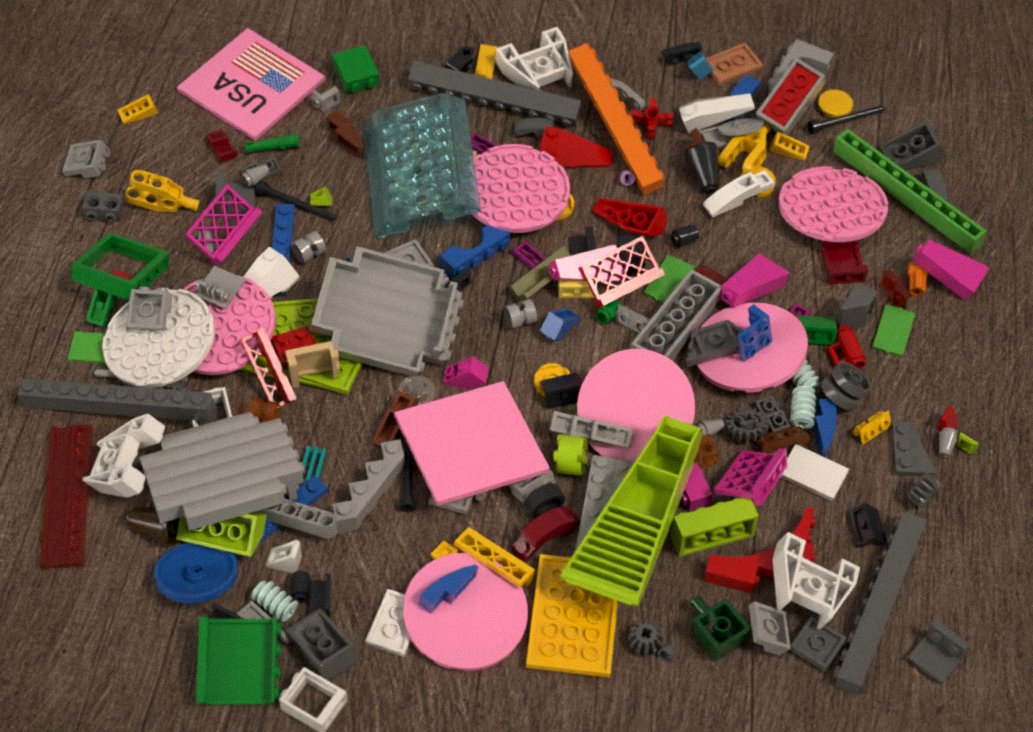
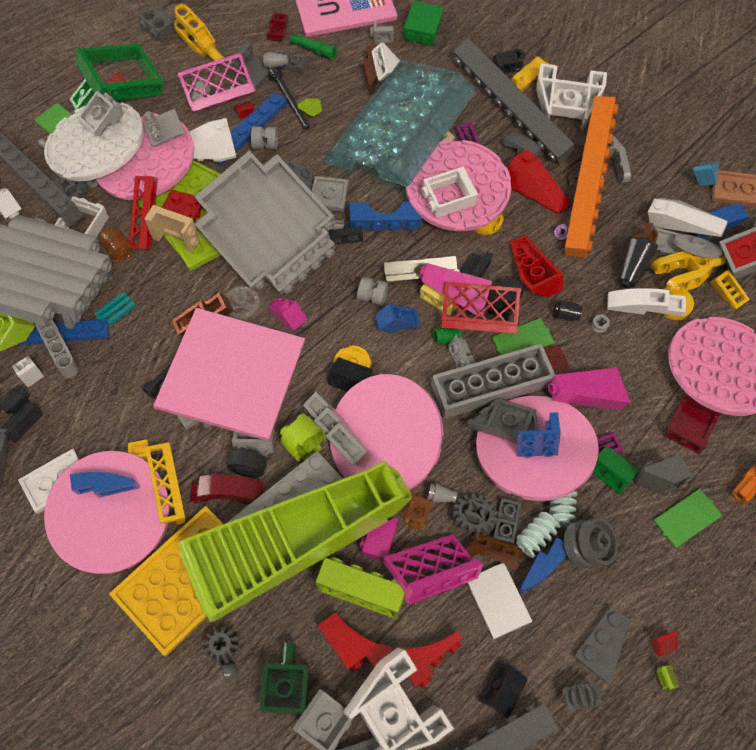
camera: 40 degrees right, 10 degrees up
(262, 234) = (244, 109): none -> red slope
(360, 121) = (384, 61): none -> white slope
(366, 493) = (124, 361): light grey brick -> none
(526, 183) = (454, 176): none -> white window
(527, 258) = (432, 241): magenta tile -> none
(652, 118) = (626, 193): red pin -> none
(681, 53) = (700, 154): black panel -> none
(716, 226) = (600, 329): none -> light grey bush
(849, 346) = (629, 508): red piece -> none
(876, 424) = (597, 597): yellow hinge -> none
(899, 292) = (719, 488): clear red slope -> none
(947, 441) = (647, 662): light grey cone -> none

